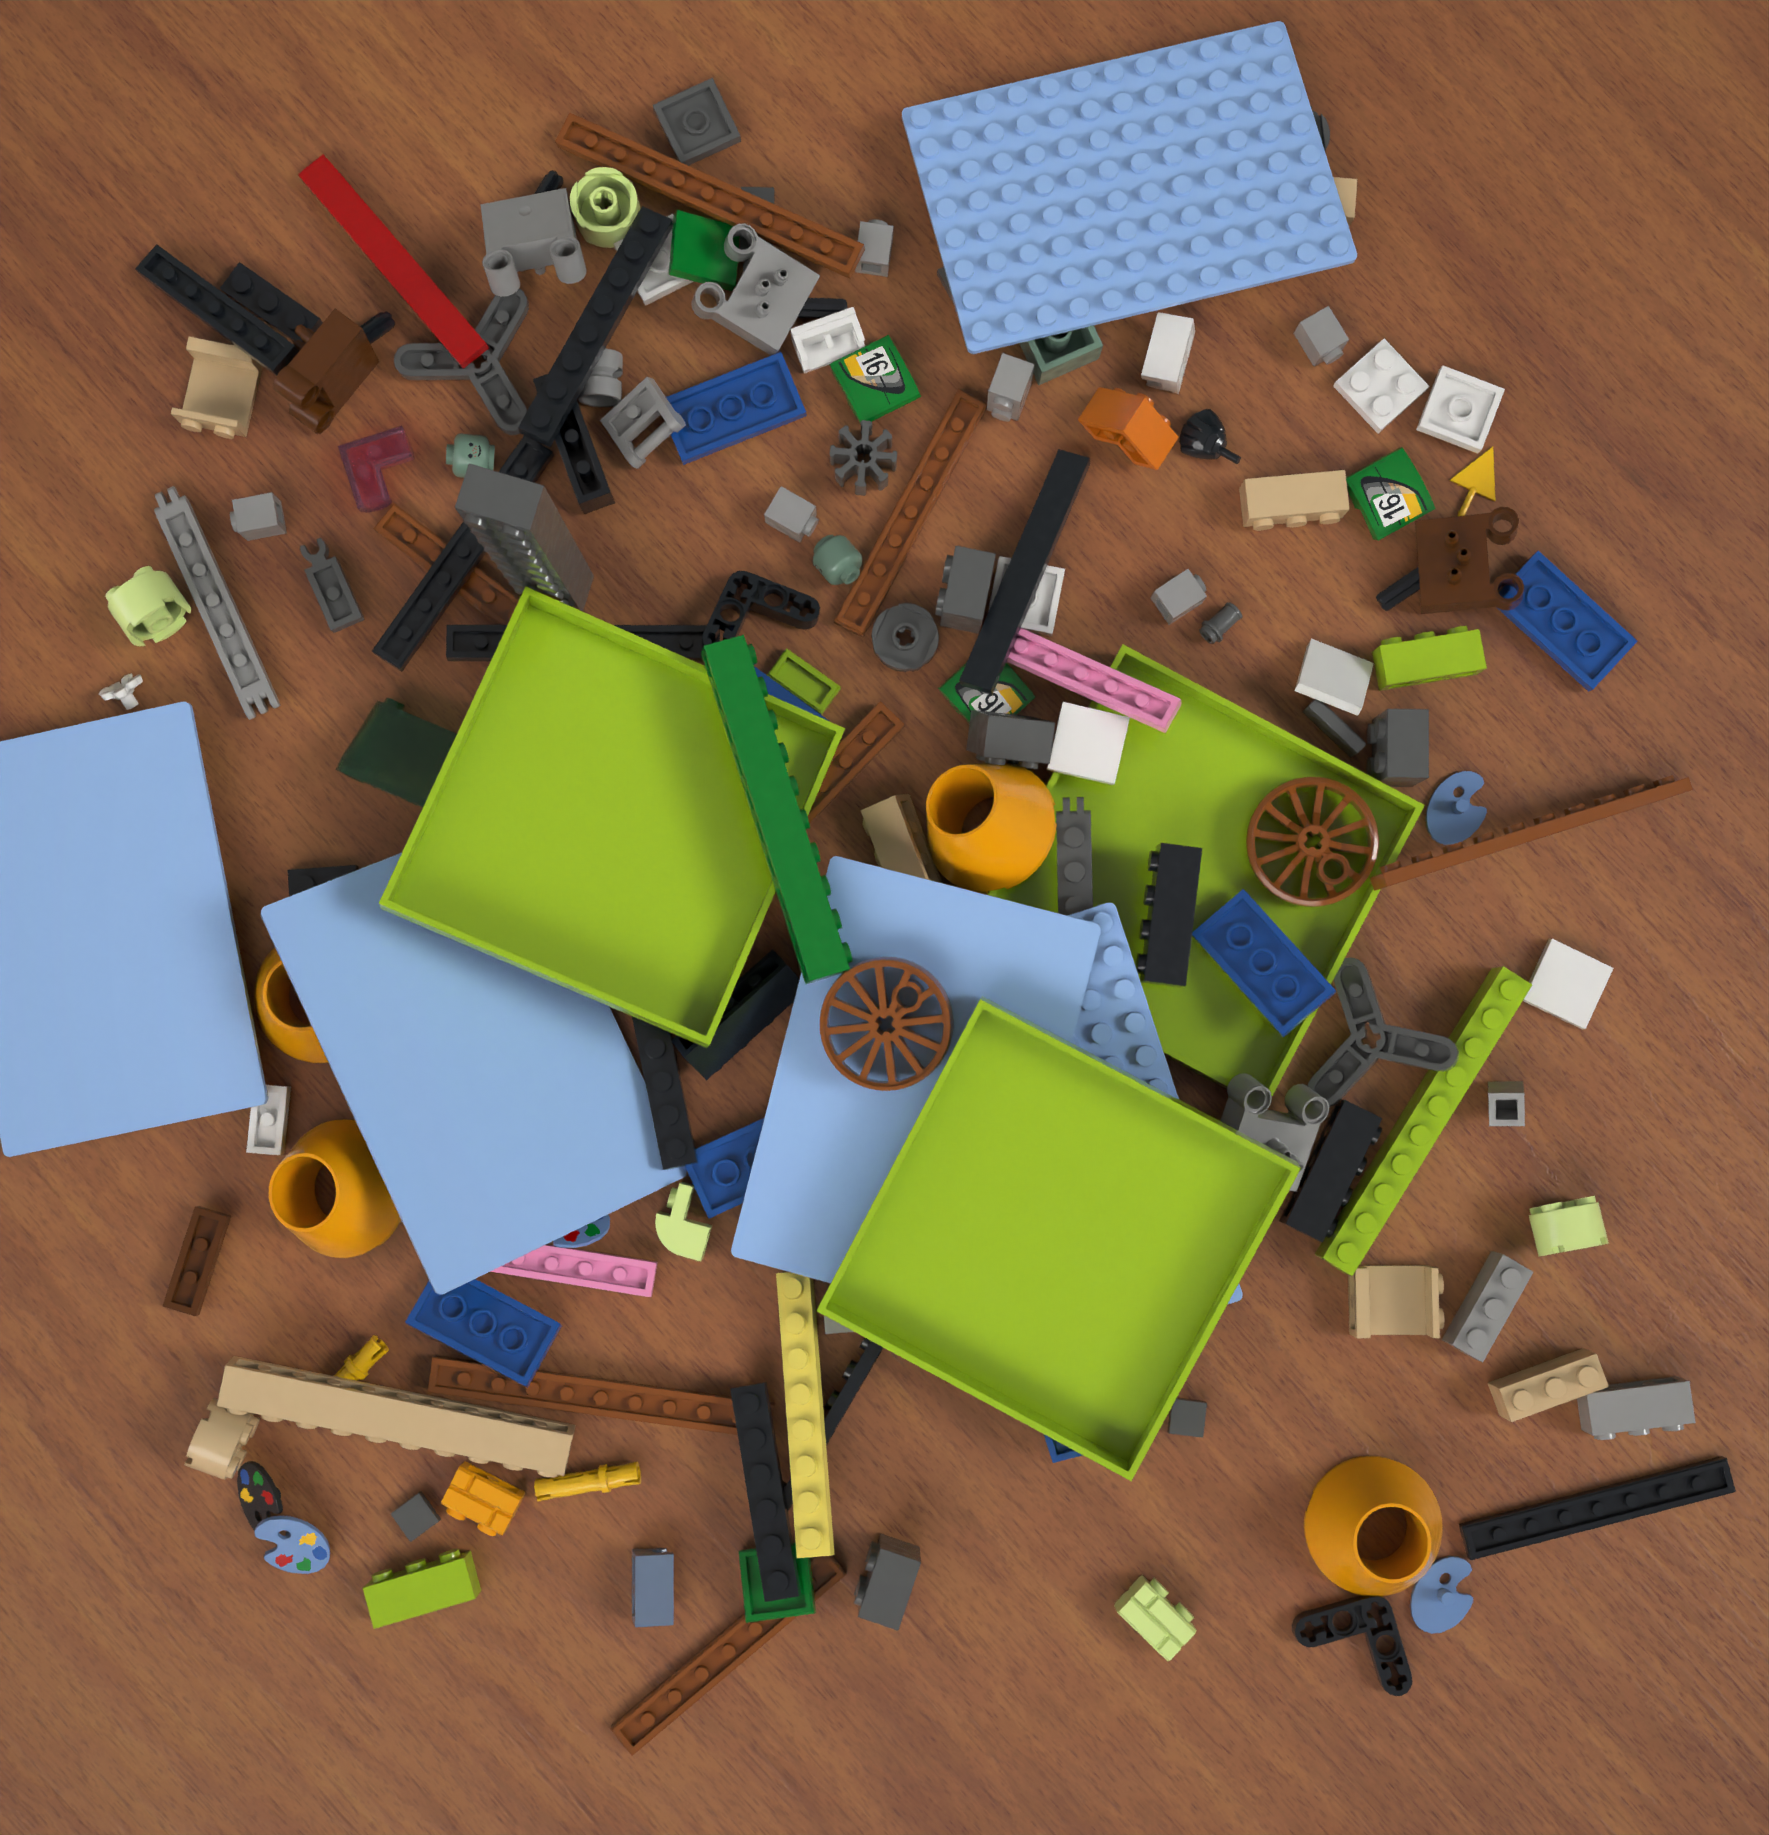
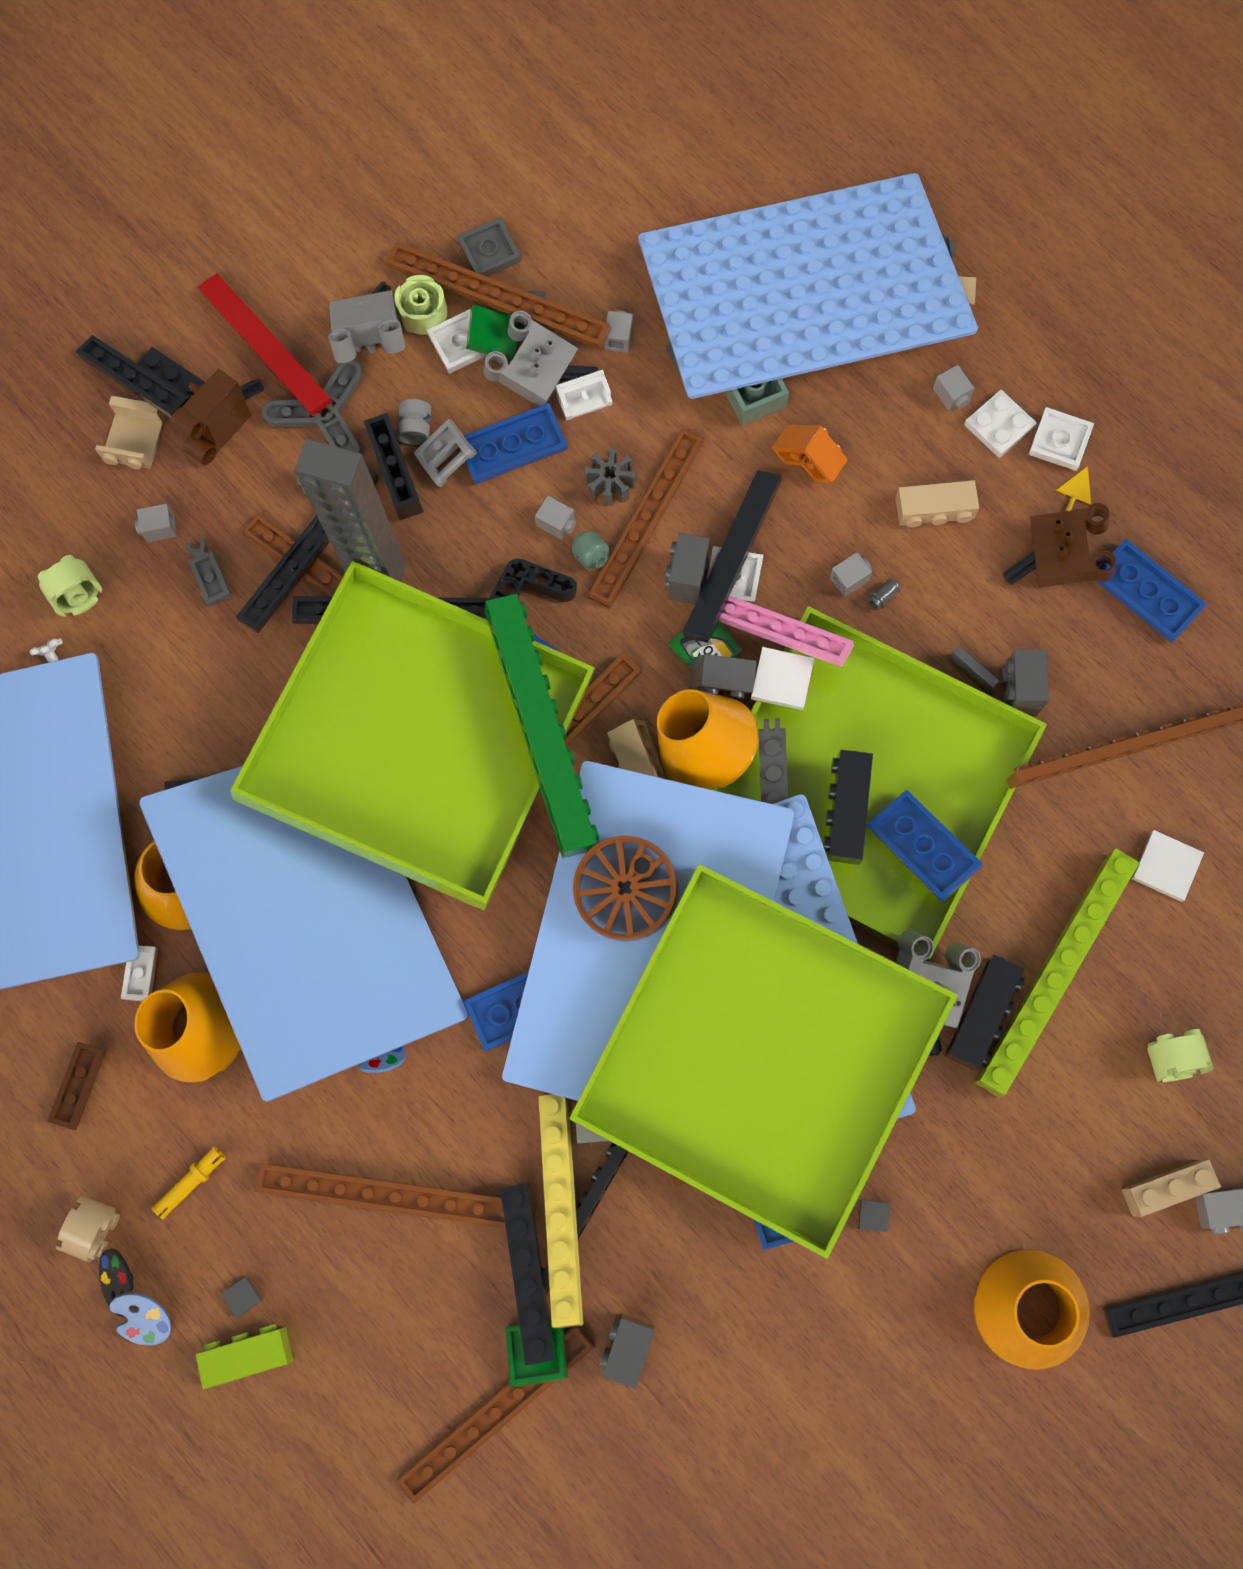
camera: 10 degrees right, 10 degrees down
(215, 603) = (120, 586): light grey hinge -> none
(364, 465) = (238, 482): clear pink brick -> none
(395, 1416) = (229, 1210): tan brick -> none
(397, 752) = (247, 690): clear green windscreen -> none
(482, 1499) = (296, 1281): light orange brick -> none
(487, 1328) = (303, 1137): blue plate -> none
(585, 1269) = (379, 1091): bright pink plate -> none
(594, 1480) = (384, 1267): yellow pin -> none
(595, 327) = (411, 383): black plate -> none
(652, 1587) = (433, 1357): sand blue hinge -> none
(665, 1095) = (451, 950): black plate -> none
(678, 1233) = (459, 1061): yellowish green brick -> none
(752, 1006) = (518, 885): black brick -> none
(804, 681) = (564, 639): lime tile -> none
(875, 380) = (619, 422): green slope -> none
(898, 619) = (655, 602): dark grey plate -> none
(1009, 388) = (719, 424): light grey brick -> none
(1155, 1617) = (851, 1385): yellowish green brick -> none
(1168, 352) = (839, 400): white hinge -> none
(1205, 437) = (868, 461): black piece -> none
(1325, 844) = (972, 758): dark orange piece -> none
(1334, 677) = (972, 632): white tile -> none
(1360, 1623) = (1025, 1392): black beam -> none
(1389, 493) = (1009, 499): green slope -> none
(1395, 1300) = (1041, 1119): tan panel -> none
(1396, 1043) = (1033, 909): dark grey piece -> none
(1429, 658) = (1045, 618): lime brick -> none
(1436, 1604) = (1087, 1377): medium blue piece -> none
(1454, 818) = (1071, 736): medium blue piece -> none
(1487, 1306) = (1117, 1122): light grey brick -> none
(1506, 1103) = (1123, 957): light grey brick -> none

